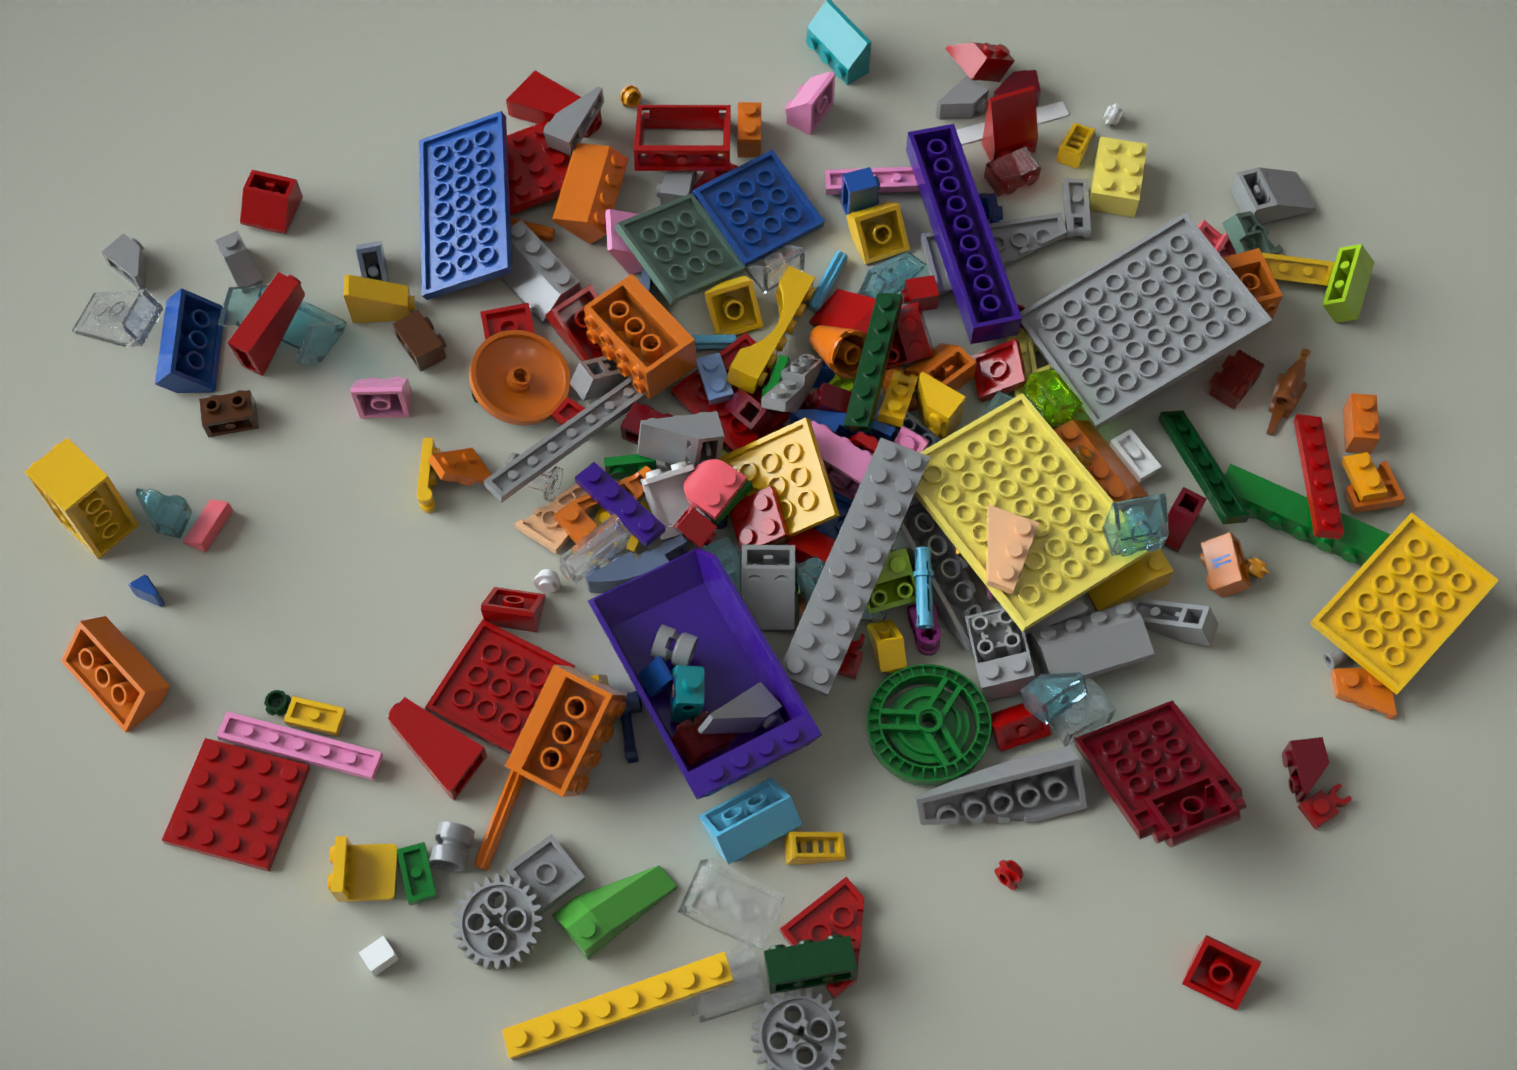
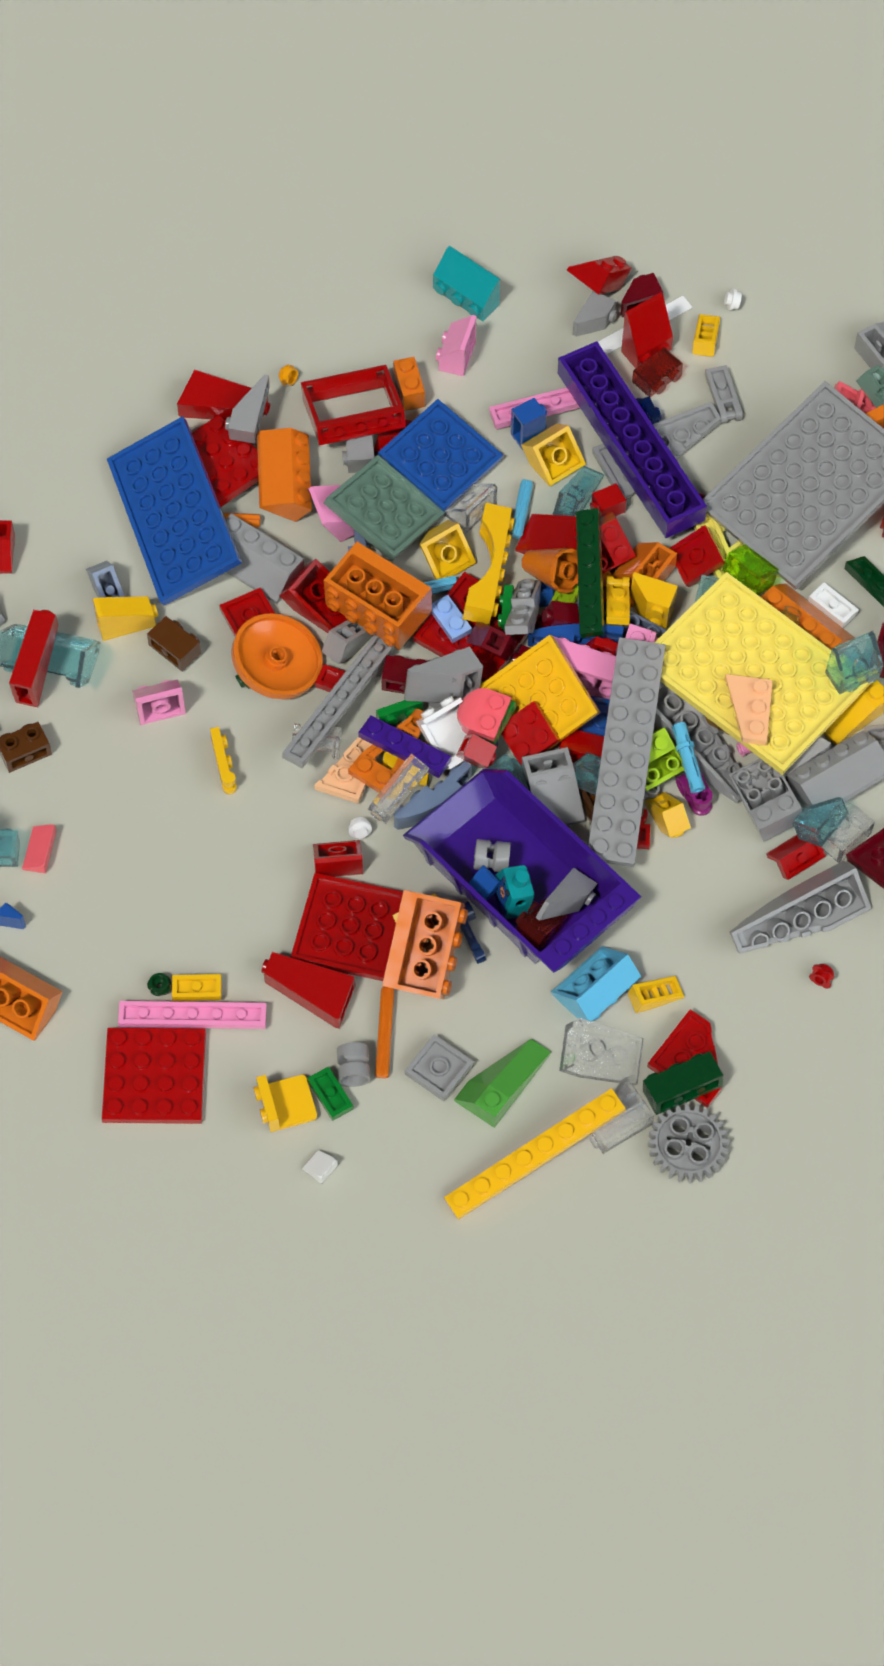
camera: 15 degrees left, 0 degrees up
(460, 466) = (252, 746): orange wing -> none
(516, 902) = (402, 1133): light grey gear -> none
(922, 743) = (716, 888): green piece -> none
(1117, 177) = (752, 357): light yellow brick -> none

